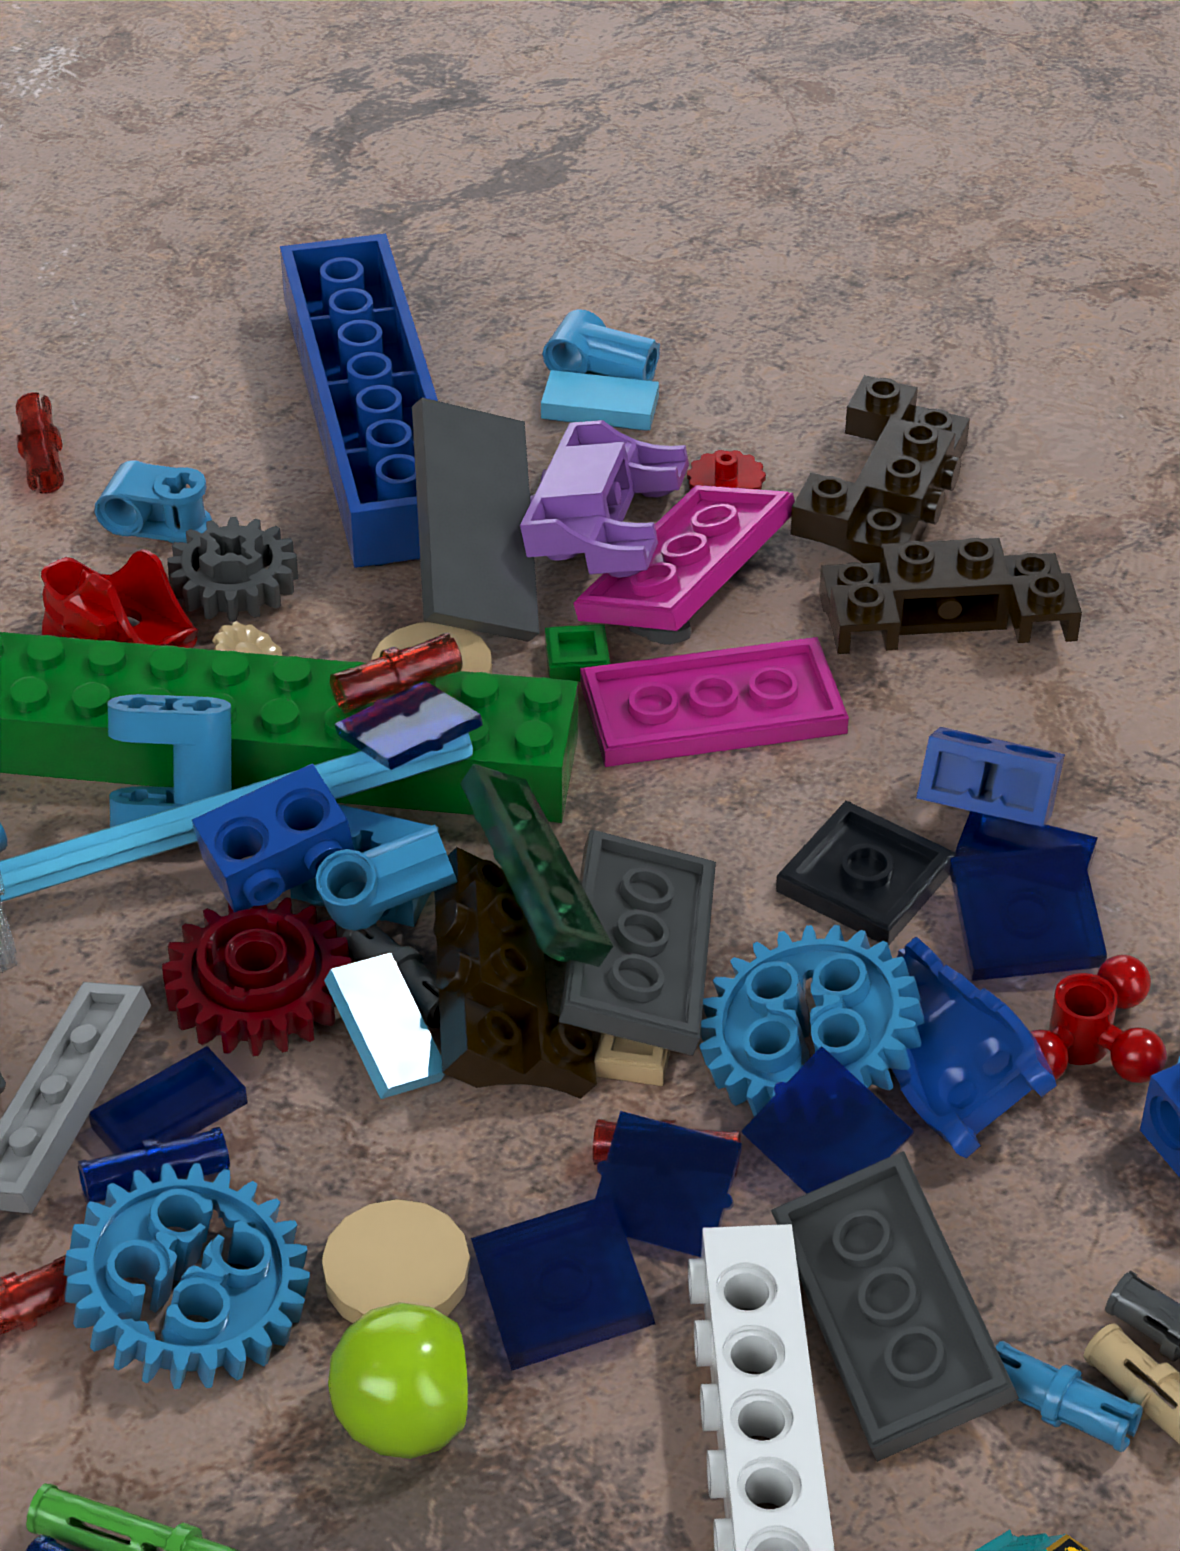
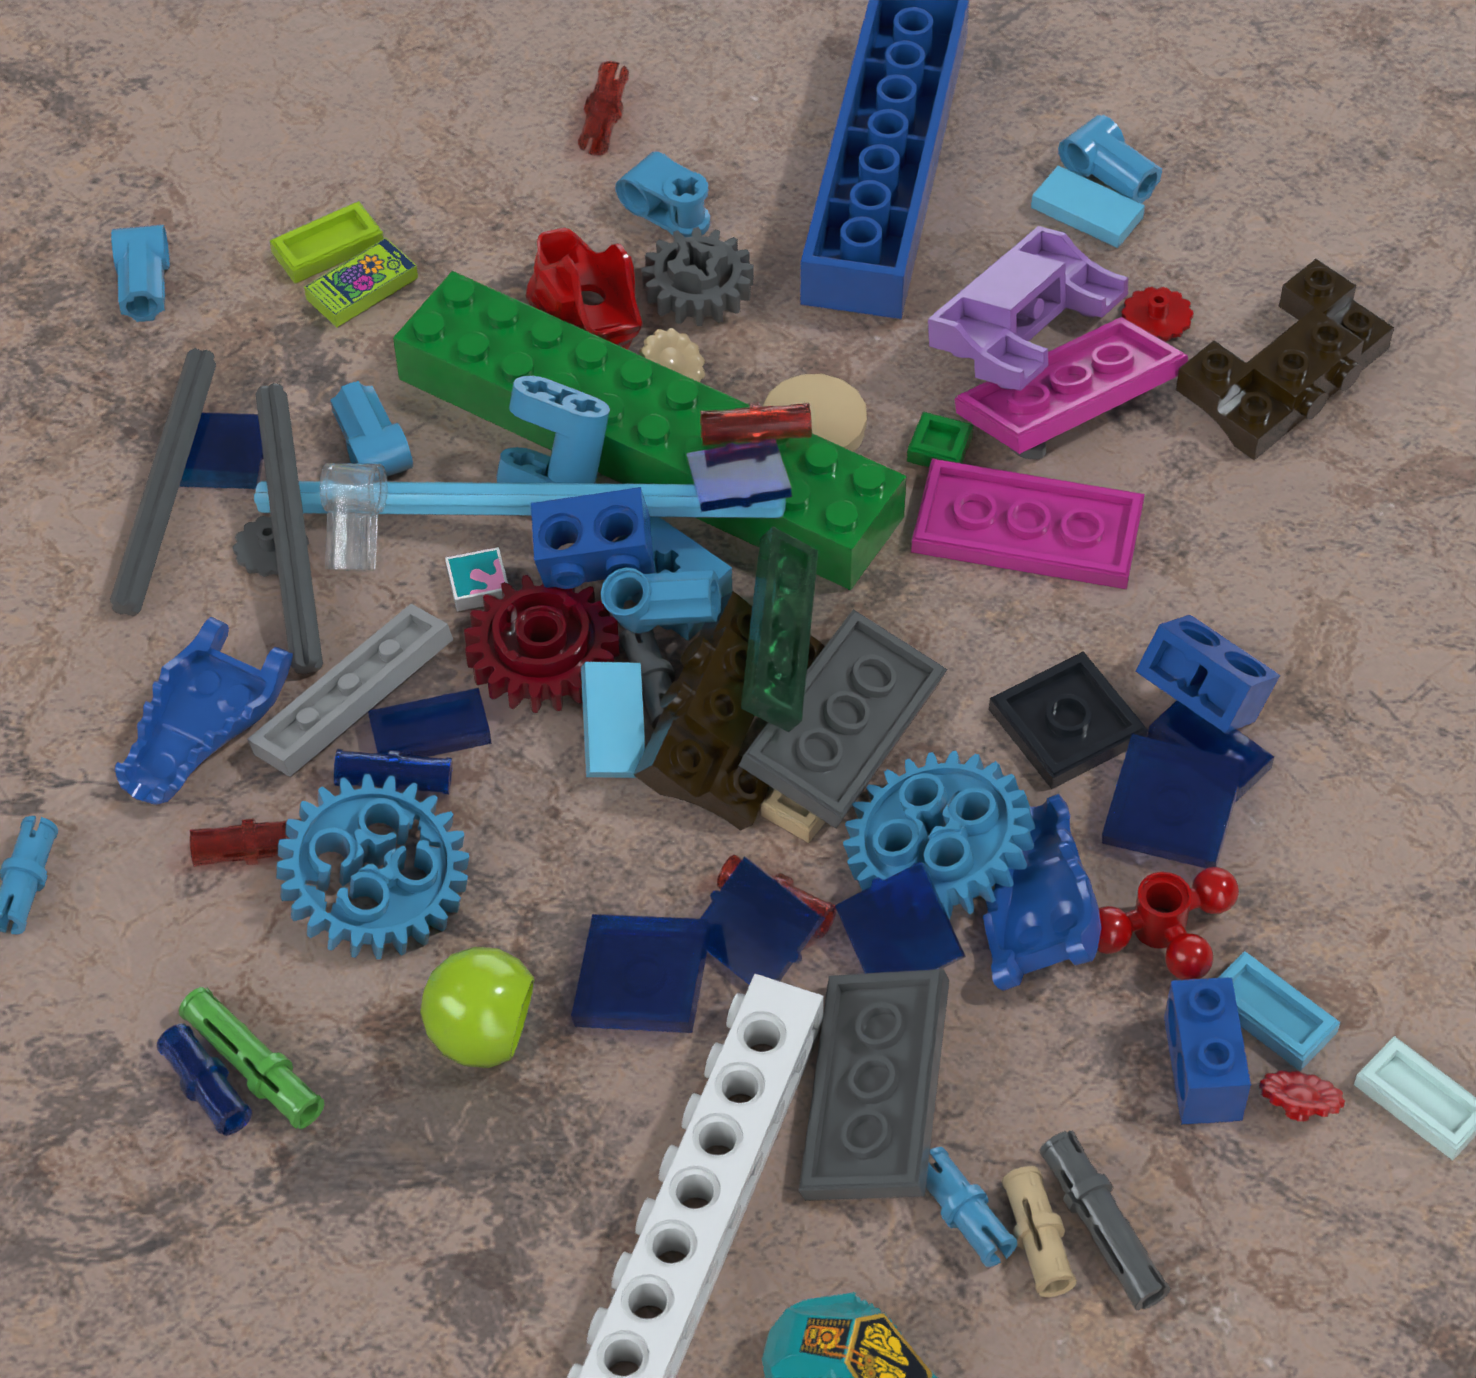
camera: 25 degrees right, 10 degrees up
(140, 936) = (474, 576): none -> tile
(394, 1256) = (531, 913): tan tile -> none
(469, 520) = (899, 280): dark grey tile -> none
(947, 591) = (1274, 486): dark brown bracket -> none

